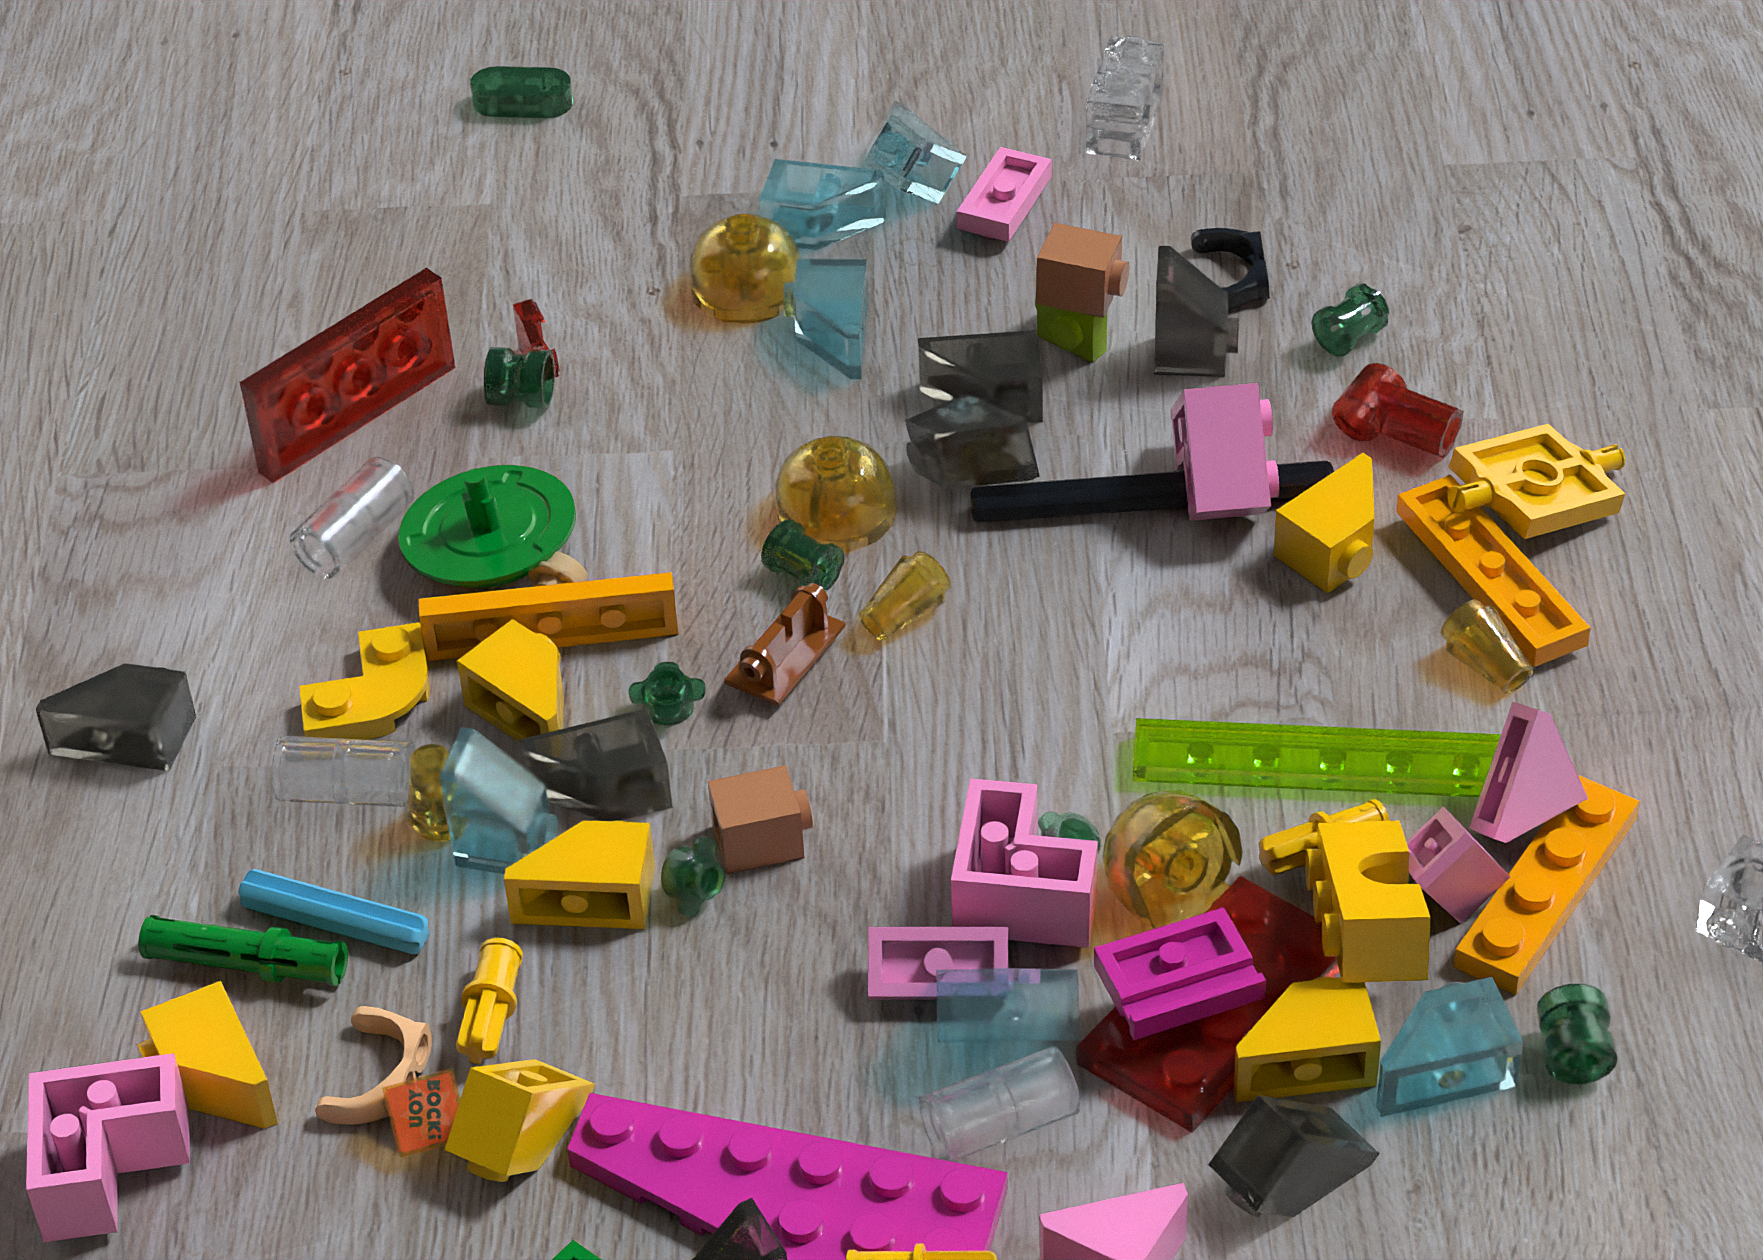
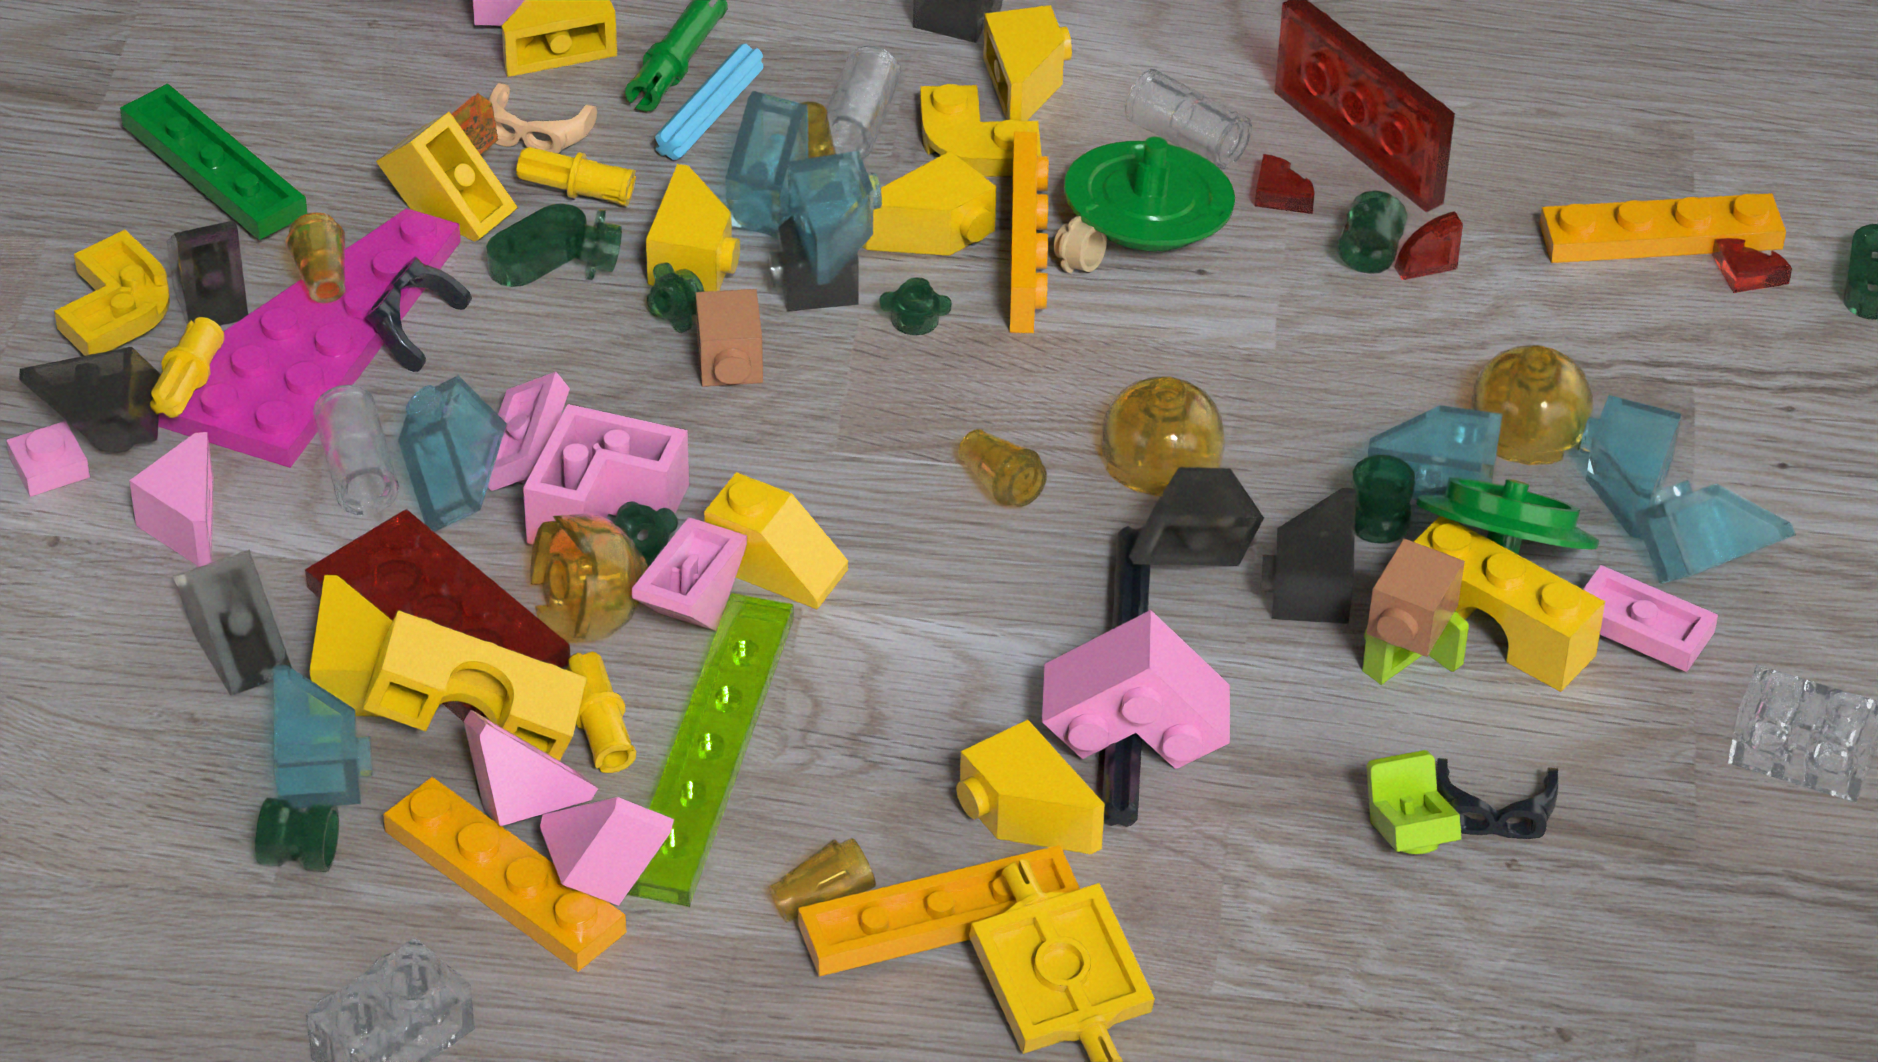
camera: 95 degrees right, 0 degrees up
(267, 648) = (1025, 58): none -> yellow slope
(435, 458) = (1282, 187): none -> clear red tile
(473, 216) = (1659, 227): none -> light orange plate
(519, 164) = (1749, 268): none -> clear red tile
(611, 940) = (599, 245): none -> clear green plate
(612, 710) = (832, 209): none -> clear light blue slope
(614, 1015) = (535, 245): none -> clear green beam
(701, 1185) = (319, 255): none -> clear yellow cone
(787, 647) = (954, 386): dark orange hinge -> none
(797, 1105) = (386, 310): none -> black cap
(801, 556) = (1070, 401): clear green bush -> none
(894, 339) = (1382, 498): none -> clear green wheel
(933, 250) = (1509, 513): none -> green piece
(997, 277) = (1546, 619): none -> yellow arch
(1058, 749) = (784, 543): none -> yellow slope
(1131, 765) = (693, 574): none -> bright pink slope
(1179, 973) = (433, 552): dark pink plate -> none
(1190, 320) = (1365, 701): clear smoke slope -> none
(1278, 302) = (1407, 803): none -> lime bracket
(1351, 321) = (1373, 870): clear green bush -> none
(1382, 404) = (1213, 868): clear red piece -> none

